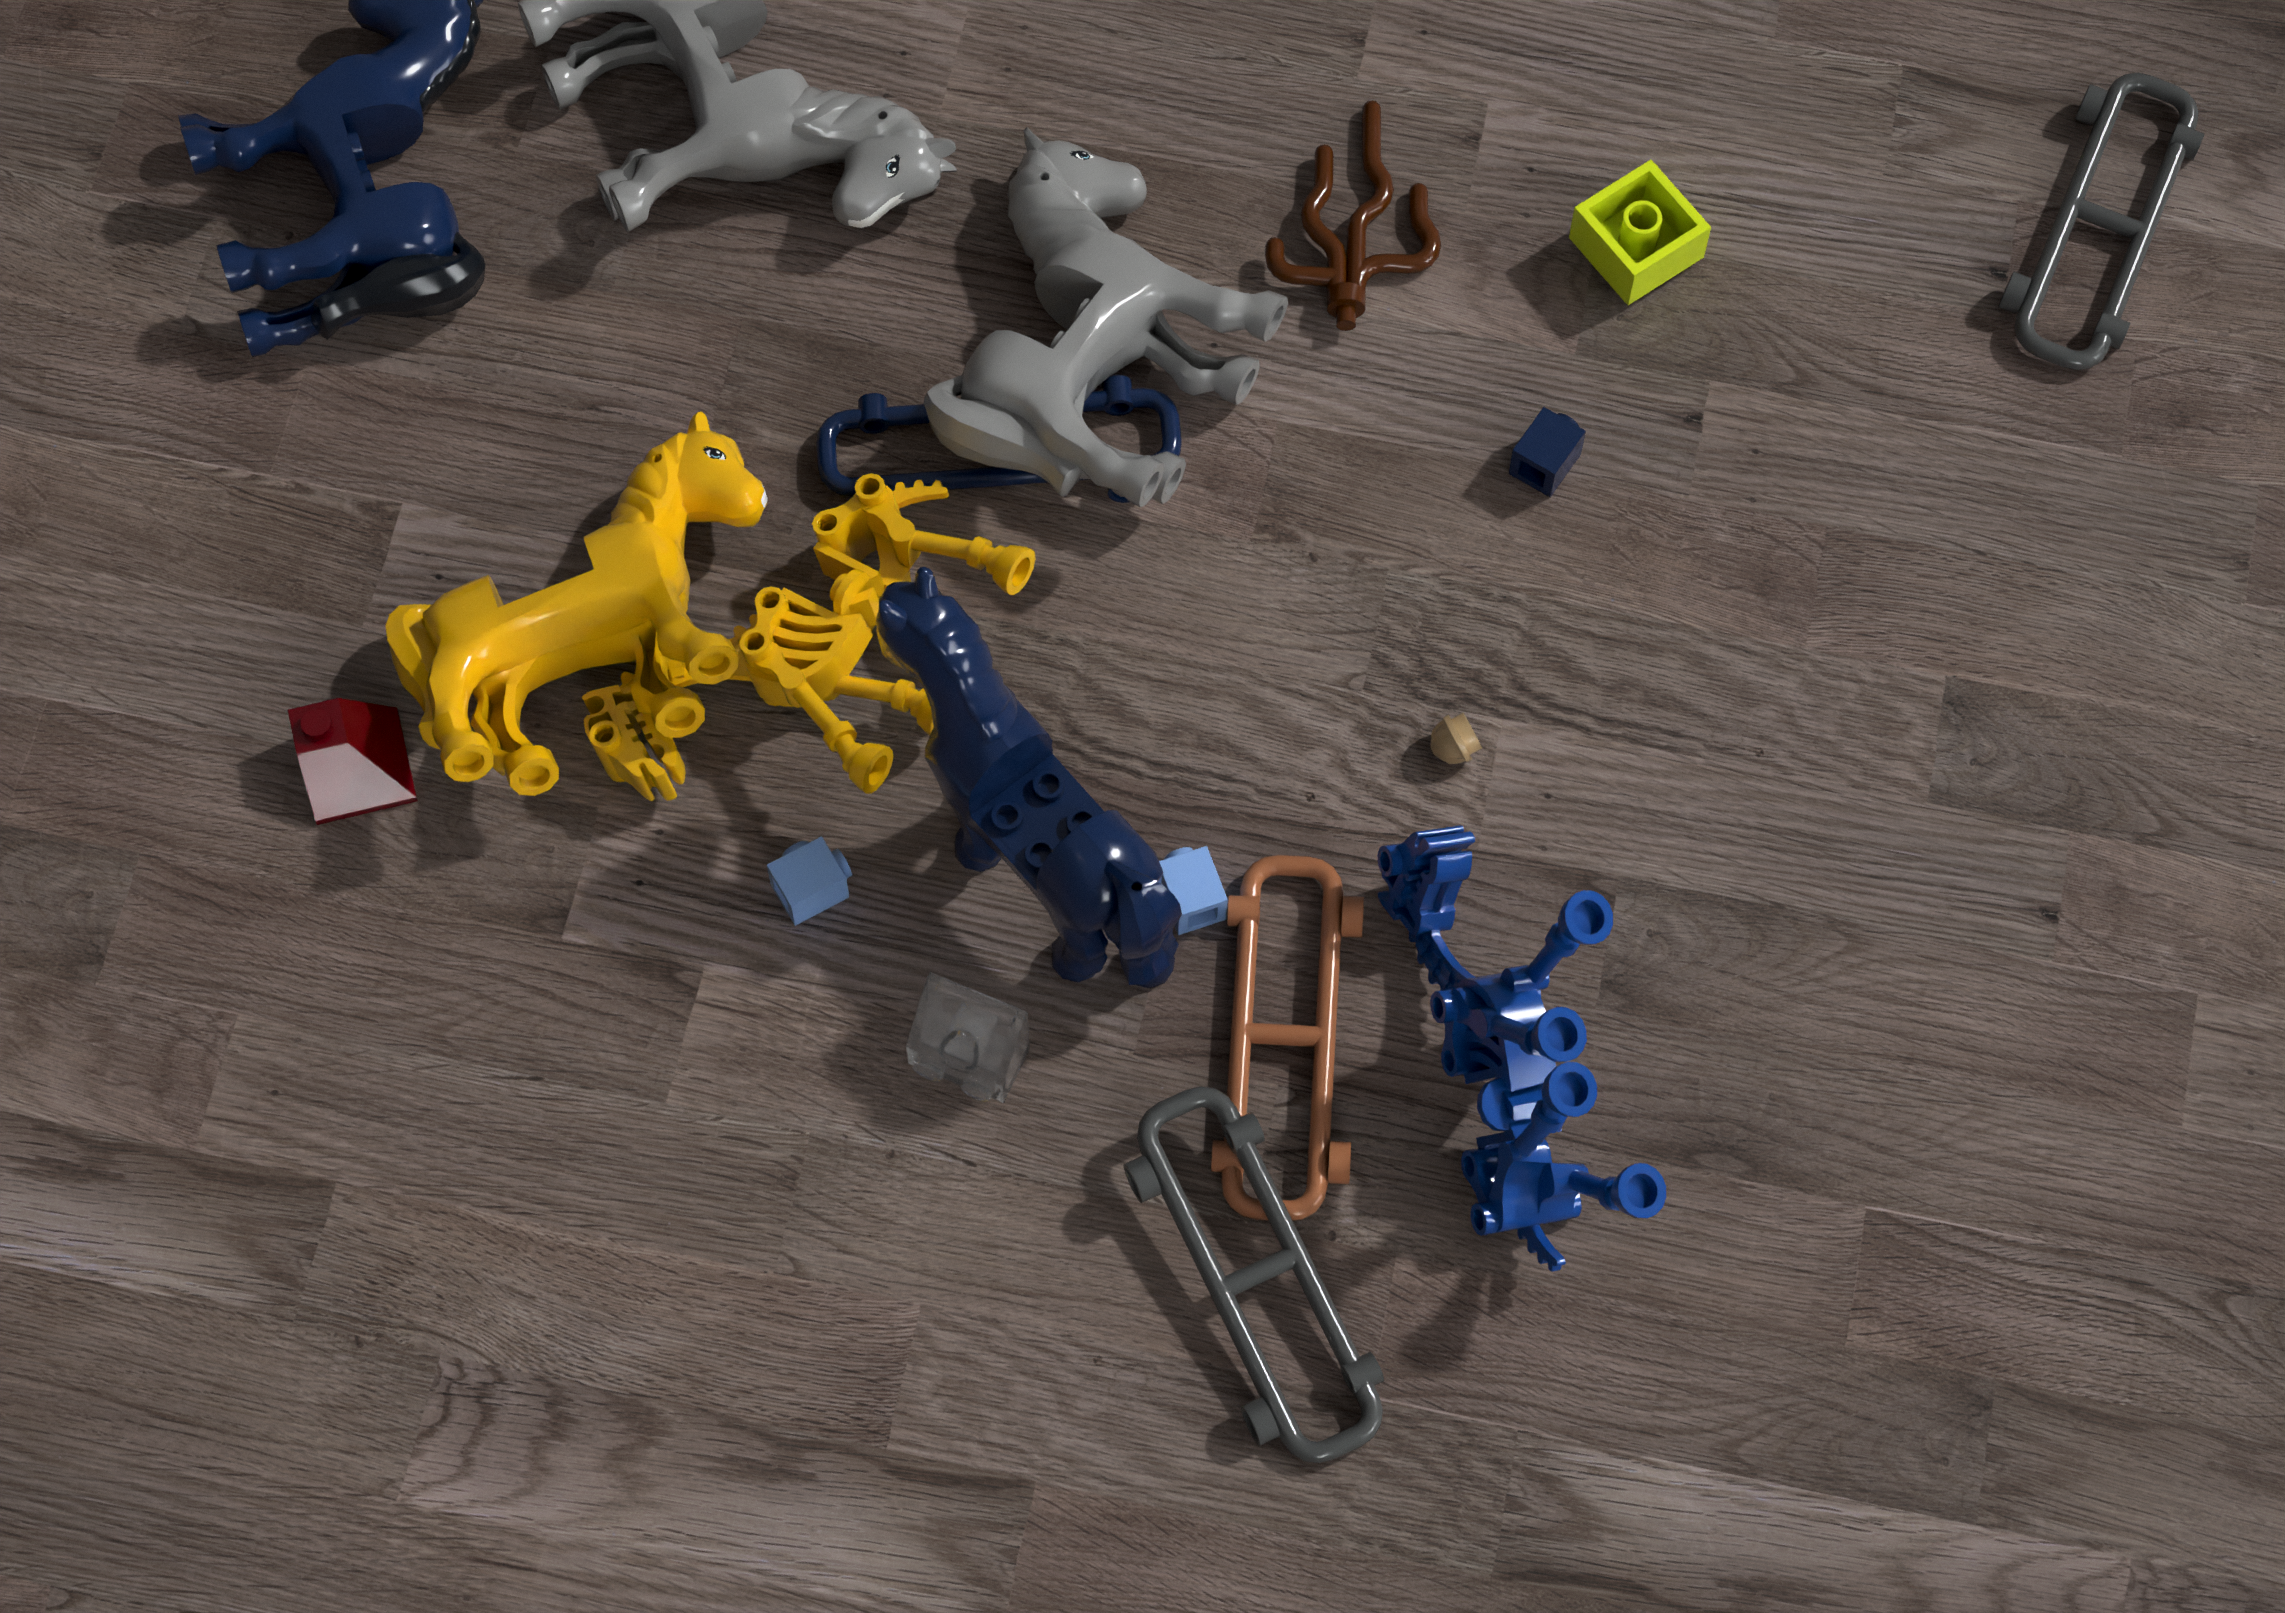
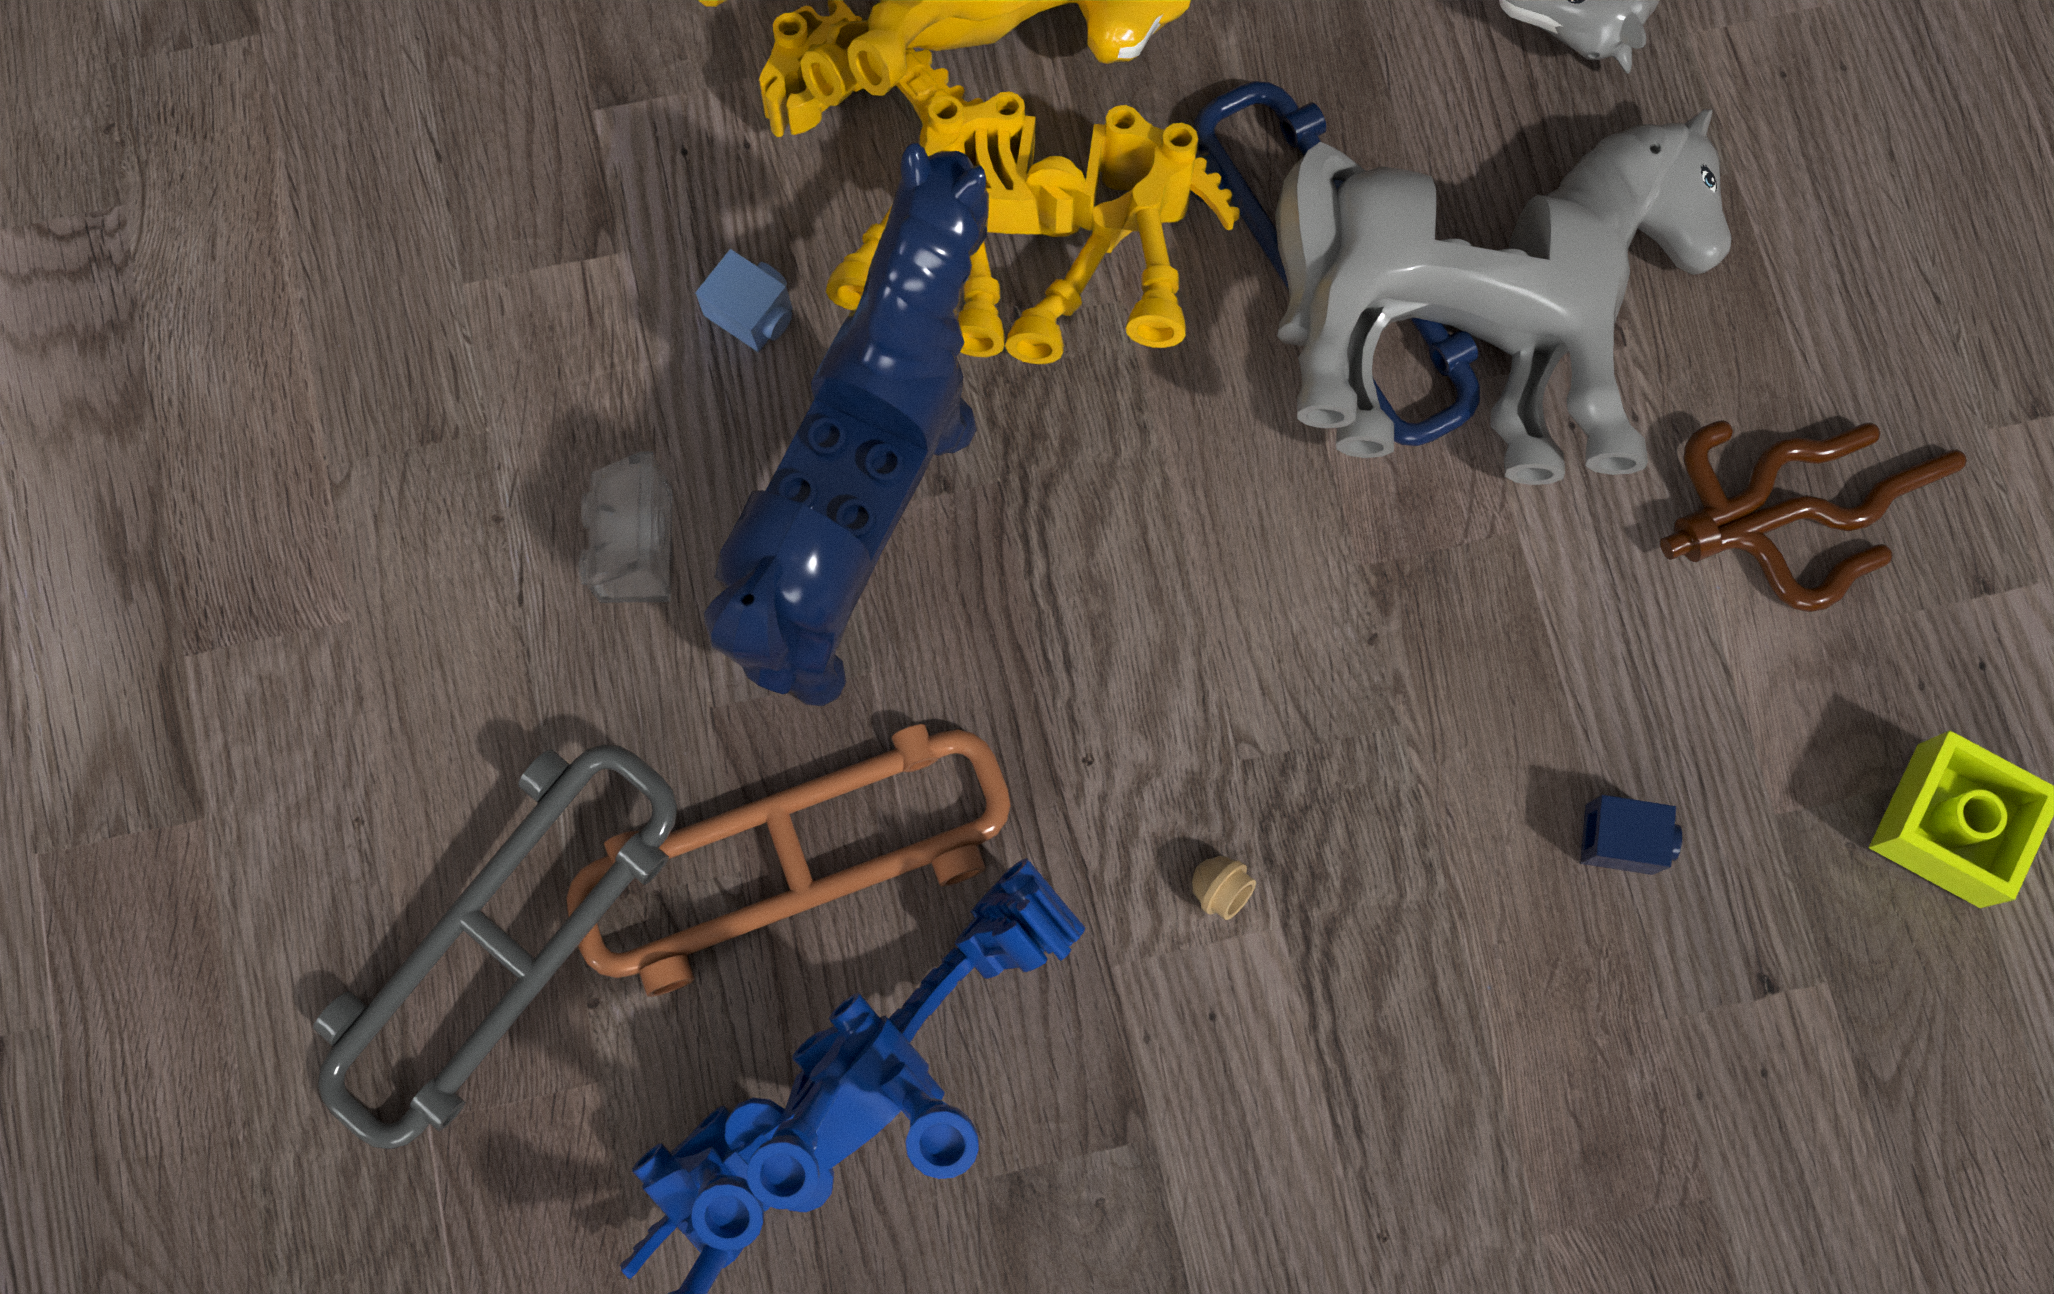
camera: 65 degrees right, 10 degrees up
(1196, 886) = (910, 680): light blue brick -> none

